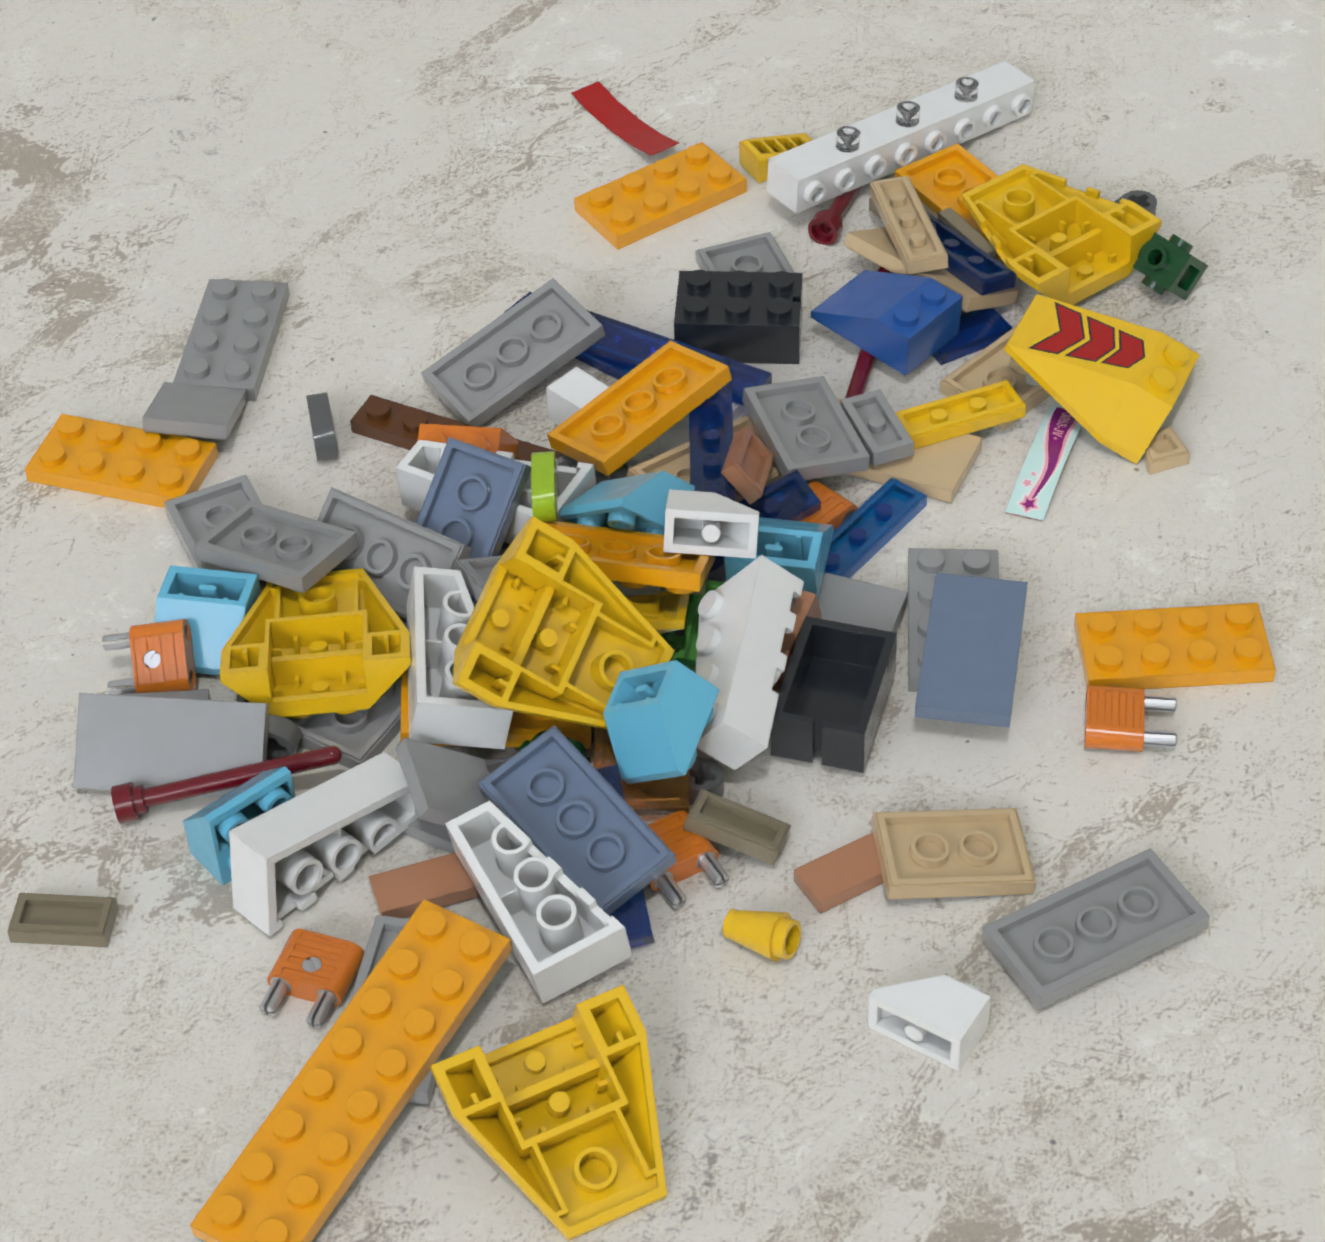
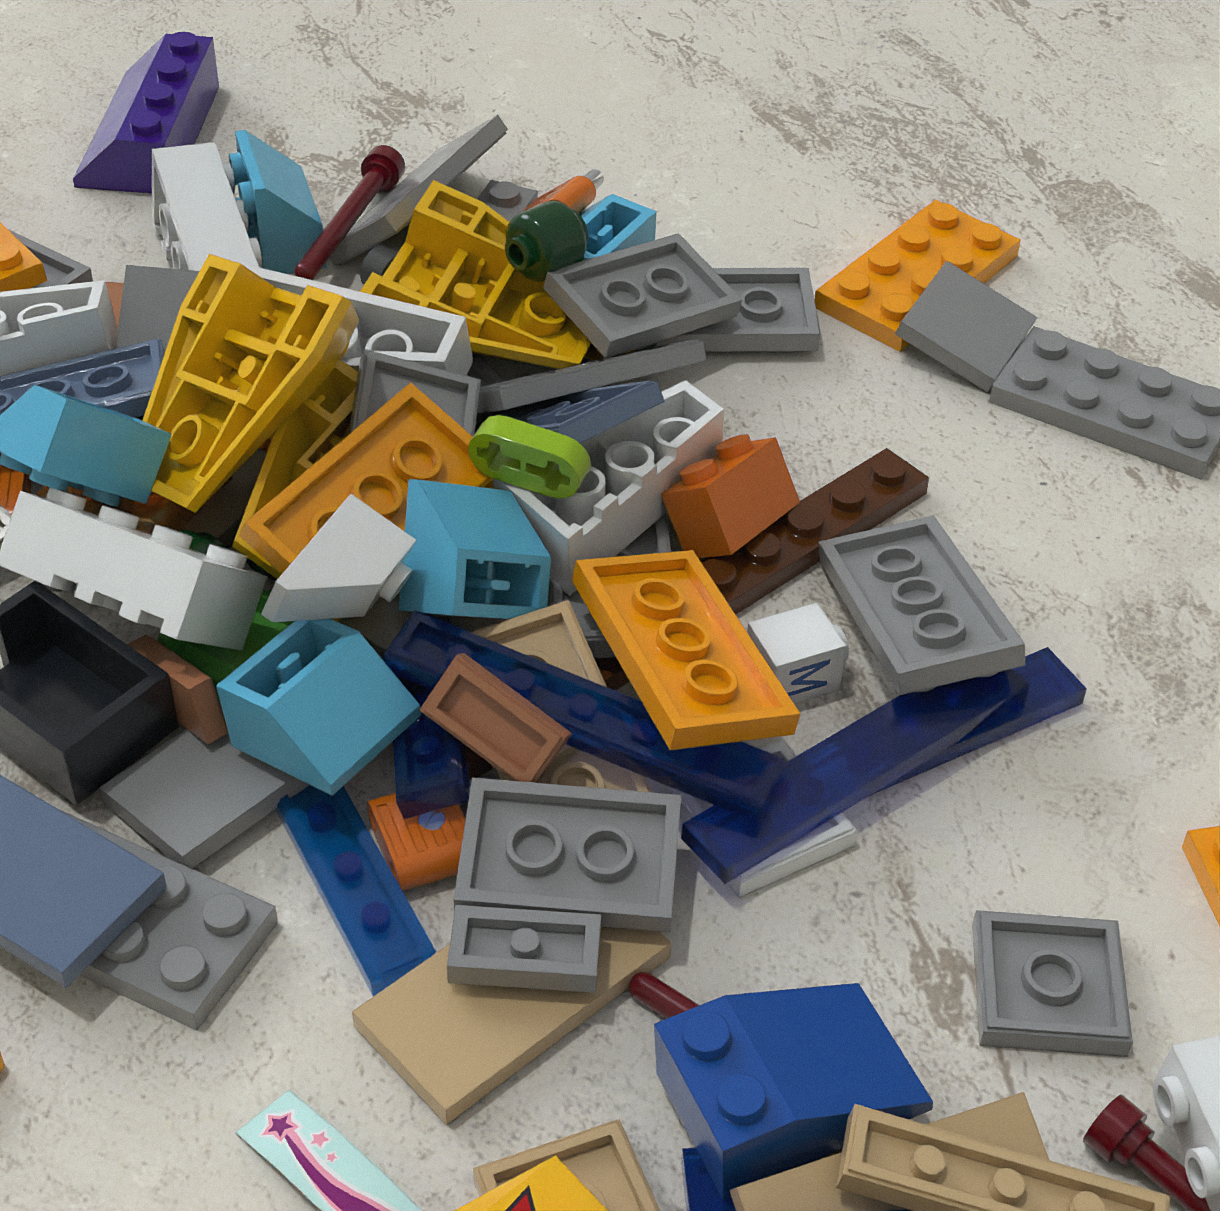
camera: 110 degrees right, 0 degrees up
(63, 920) = (285, 116): dark tan tile -> none
(114, 999) = (155, 107): none -> dark purple slope
(269, 584) = (545, 239): none -> dark green head
(314, 970) = (77, 229): orange piece -> none
(322, 426) = (884, 418): dark grey beam -> none
(741, 314) = (903, 886): black piece -> none
(962, 414) = (503, 1085): yellow tile -> none

